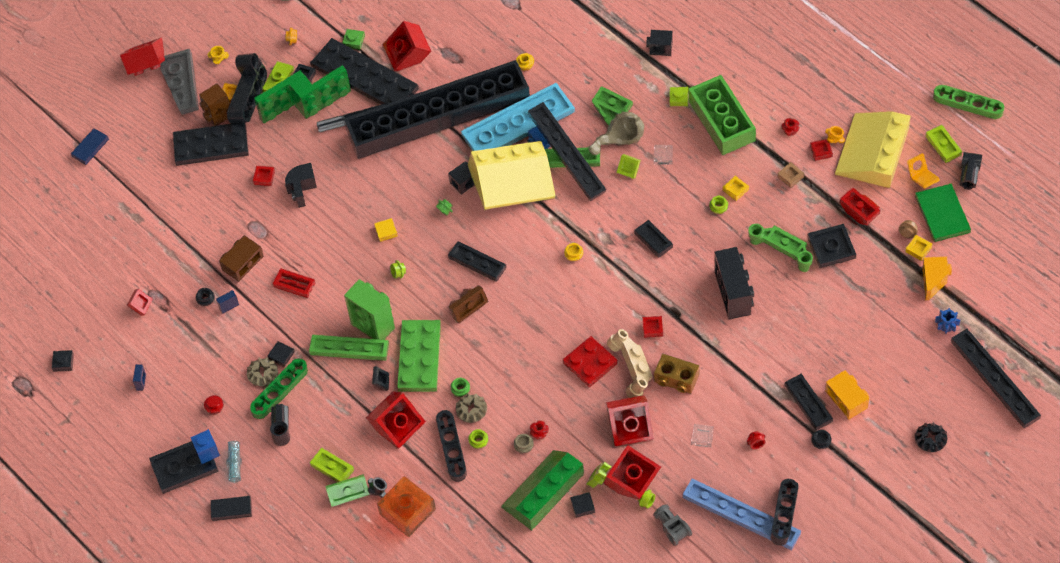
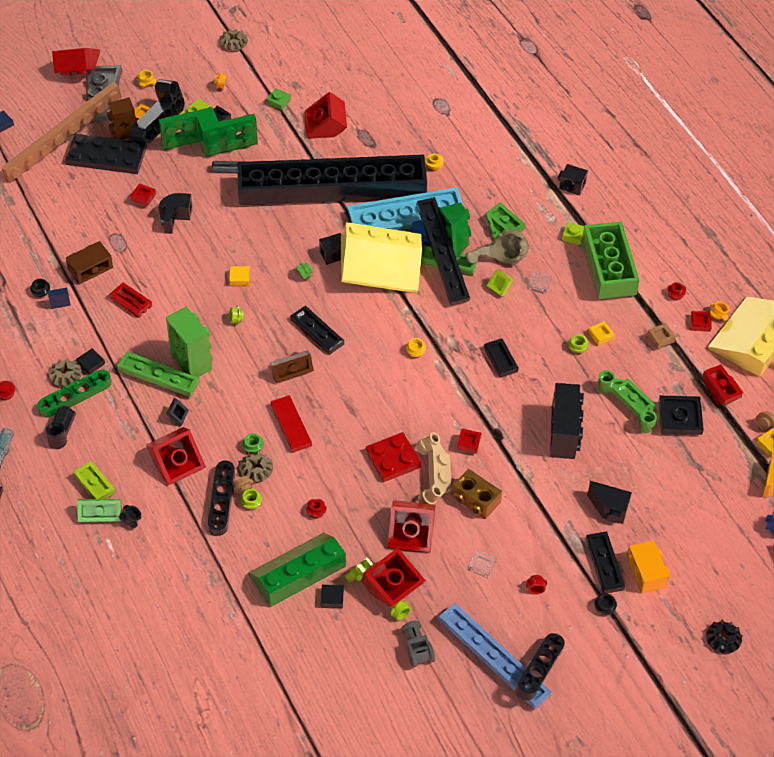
camera: 10 degrees right, 5 degrees down
(162, 134) = (61, 132): none -> nougat plate
(364, 73) = (275, 130): black plate -> none
(406, 506) = (150, 543): clear orange brick -> none
(419, 356) = (224, 402): bright green plate -> none
(466, 428) = (243, 484): none -> medium nougat plate
(487, 358) = (291, 423): none -> red tile
(523, 443) = (295, 516): dark tan plate -> none
(570, 120) = (457, 227): none -> green slope
(795, 345) = (609, 501): none -> black slope

